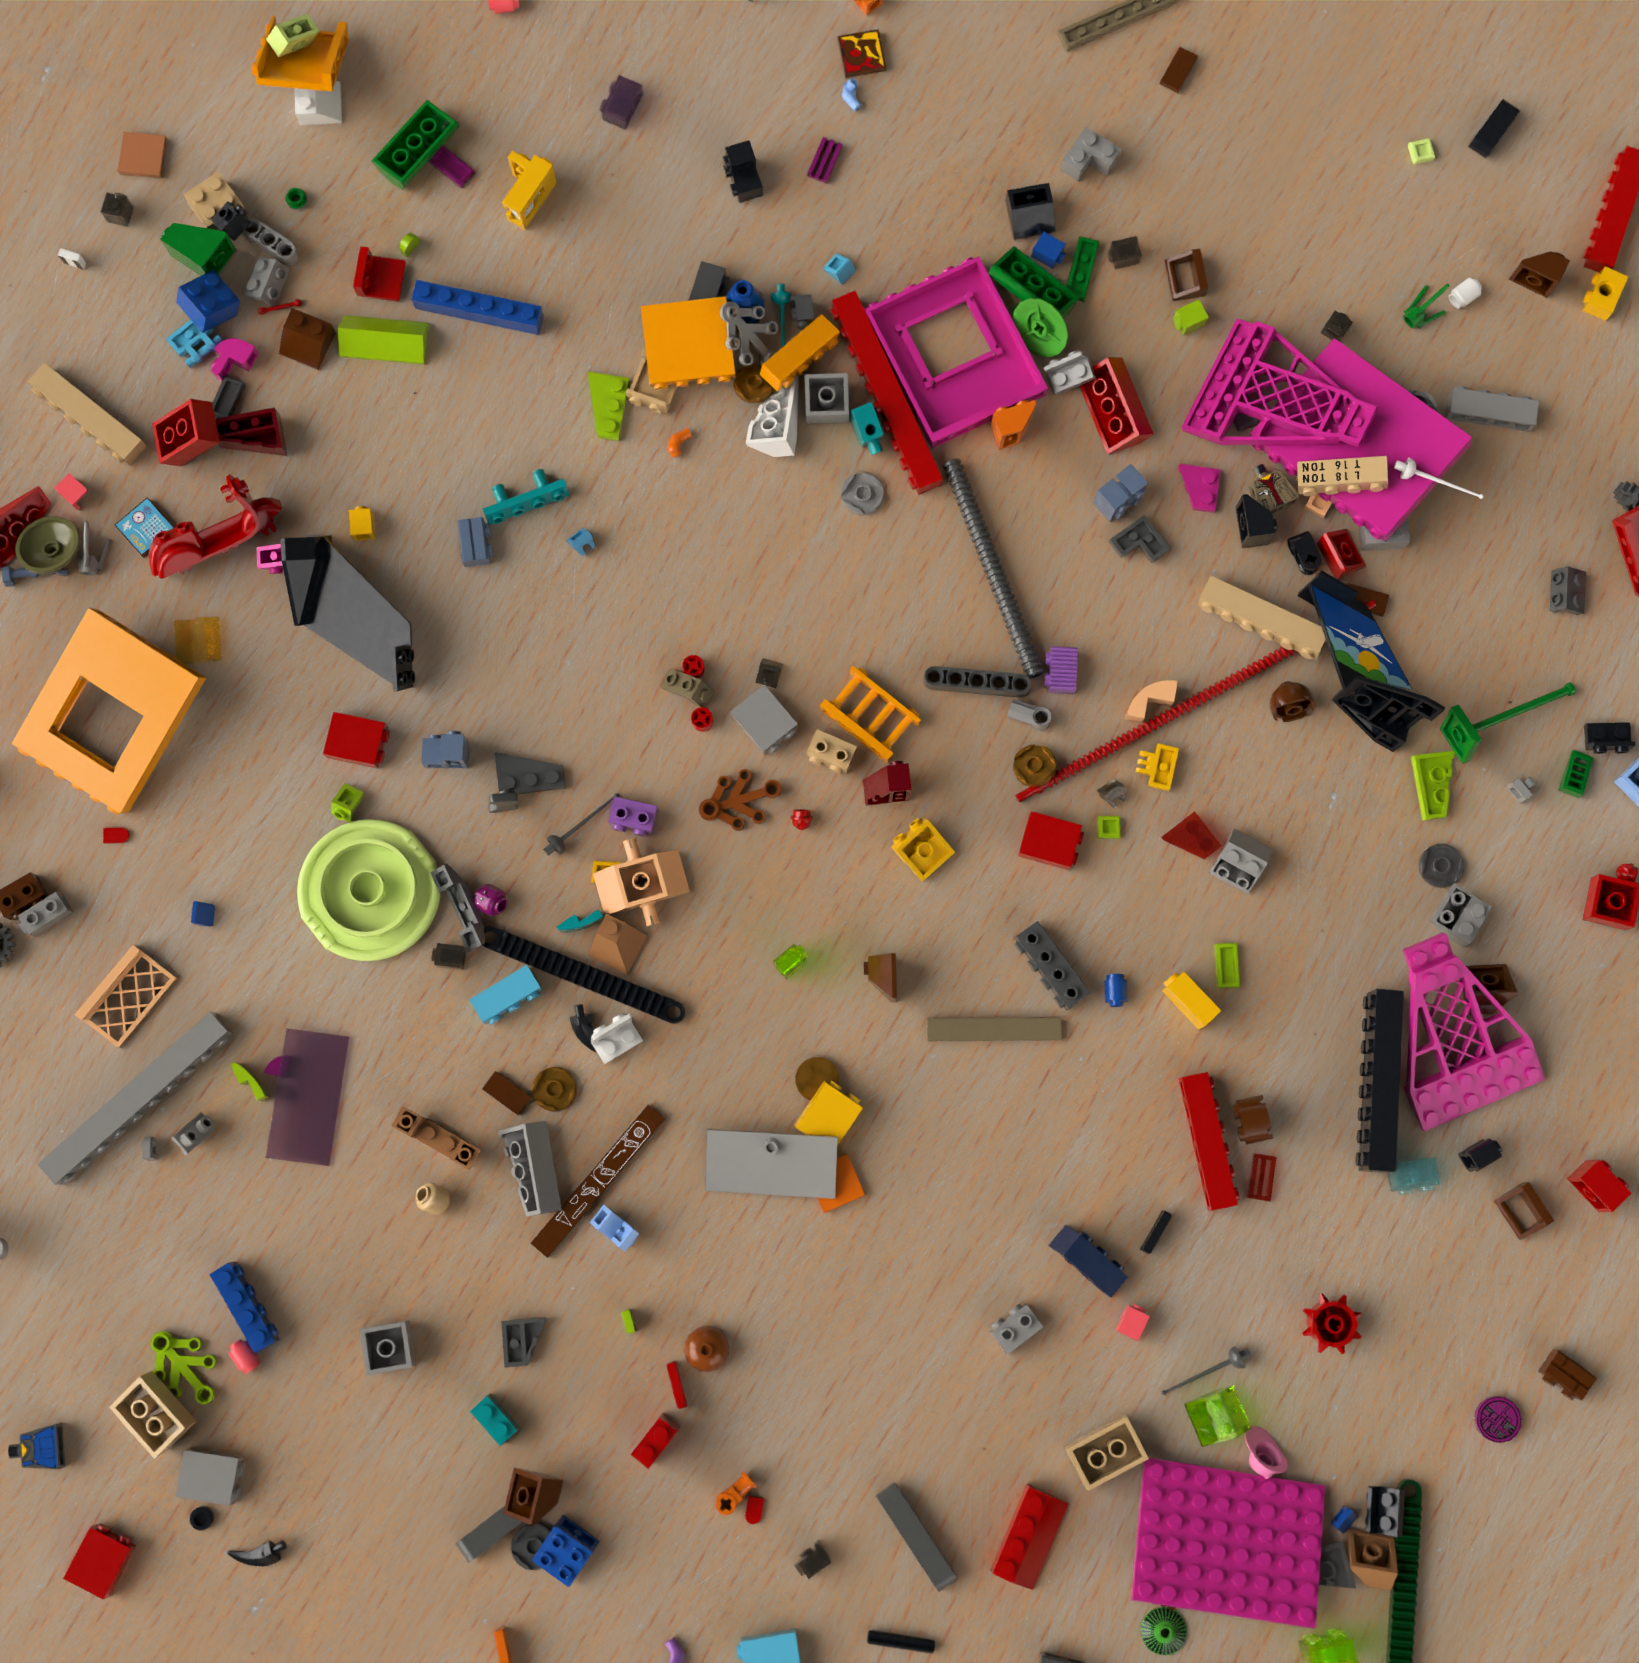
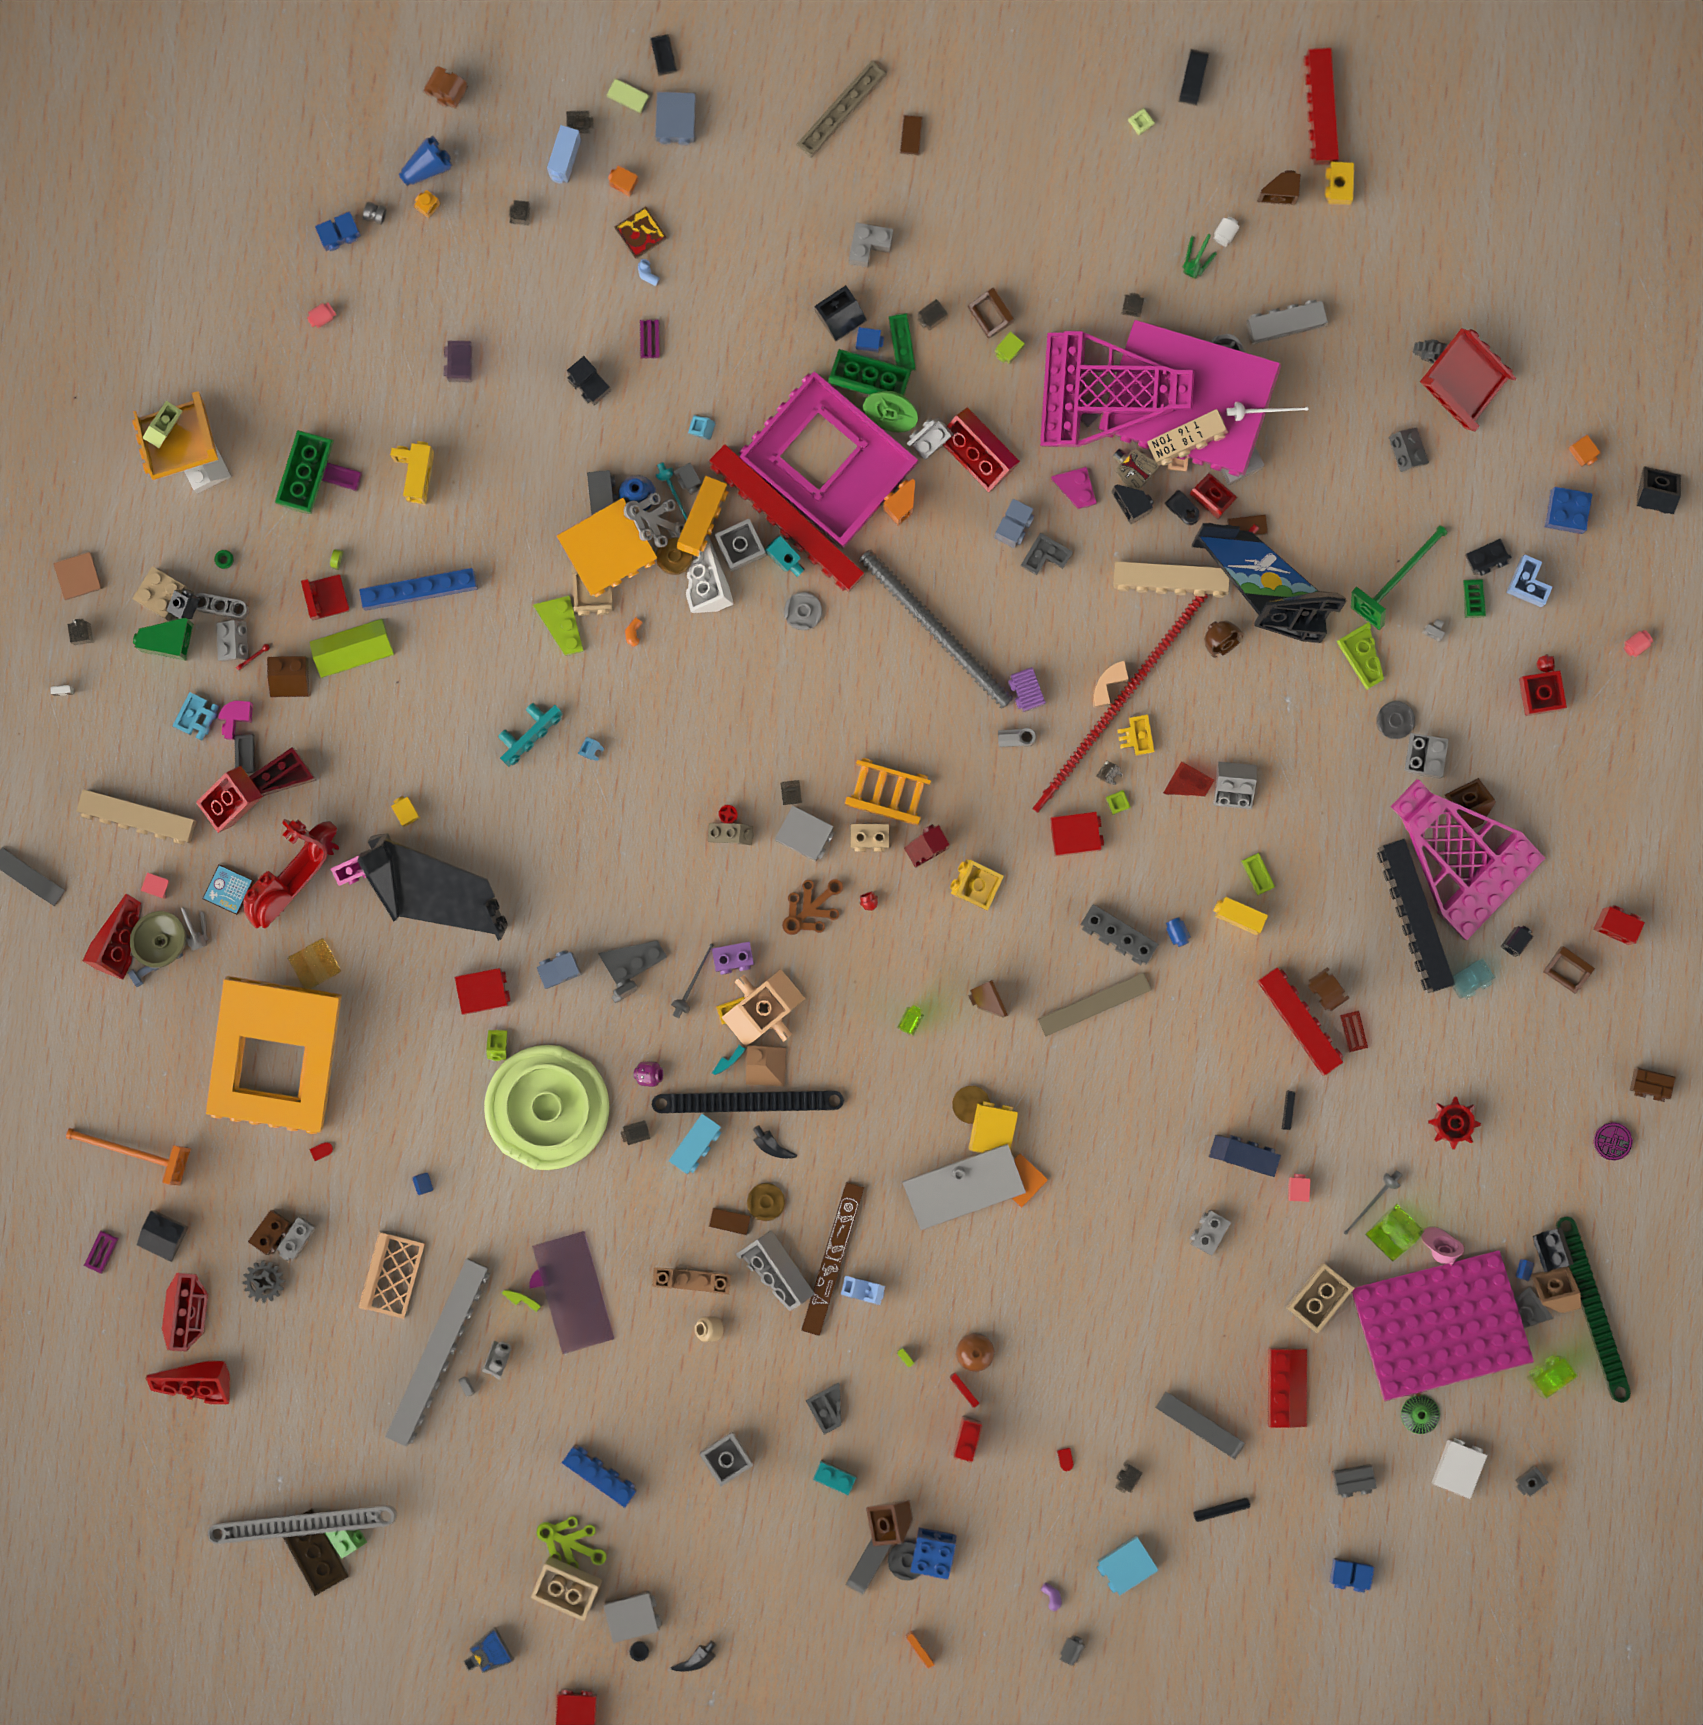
camera: 25 degrees left, 5 degrees up
(208, 301) = (194, 680): blue brick -> none
(243, 1356) = (615, 1514): coral brick -> none
(463, 903) = (629, 1087): dark grey slope -> none
(474, 541) = (504, 787): sand blue brick -> none
(616, 1038) = (798, 1142): white bracket -> none
(700, 715) = (754, 852): red wheel -> none
(735, 1493) = (1045, 1453): orange connector -> none
(987, 678) = (970, 722): dark grey beam -> none
(1034, 765) = (1038, 778): pearl gold tile -> none

